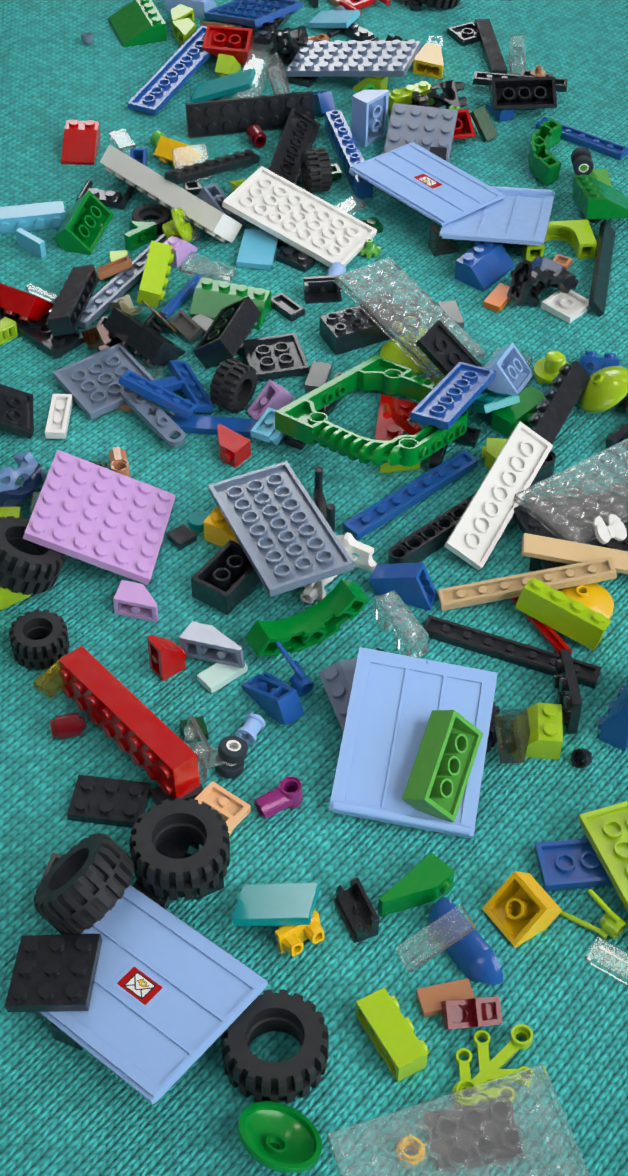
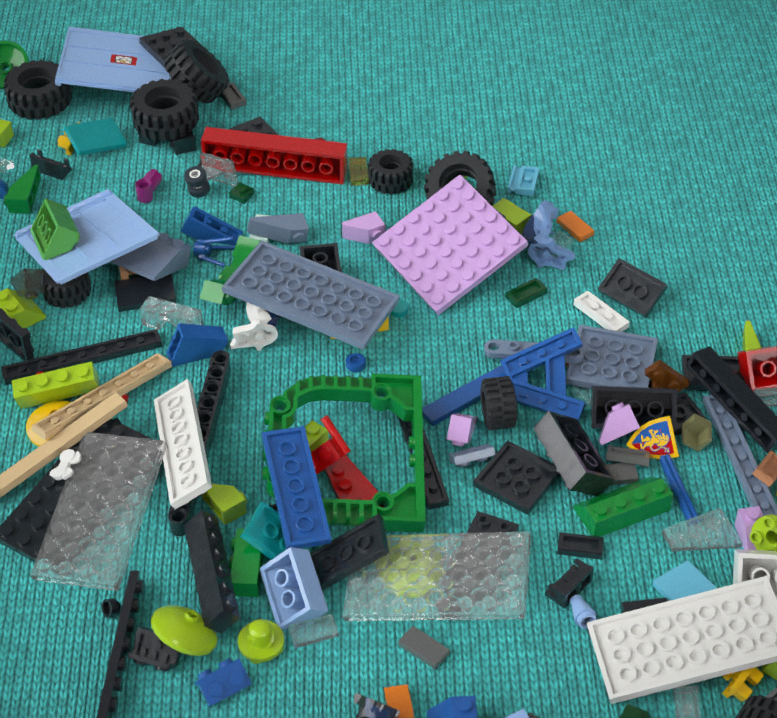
camera: 140 degrees right, 0 degrees up
(119, 461) = (496, 301): nougat piece -> none
(154, 274) = (722, 478): lime brick -> none
(165, 657) = (302, 199): red slope -> none
(174, 332) = (618, 423): none -> lavender slope
(181, 536) = (396, 287): black tile -> none
(228, 805) = (177, 163): light nougat plate -> none
(232, 446) = (446, 370): red slope -> none
(252, 726) = (205, 204): light blue bush -> none
(265, 428) = (434, 400): medium azure plate -> none
(293, 384) = (478, 453): none -> sand blue plate
(317, 375) = (460, 487): tile -> none
(327, 511) = (312, 361): black plate -> none
(370, 249) = (593, 682): bright green plant -> none
(410, 495) = (253, 464): blue plate -> none

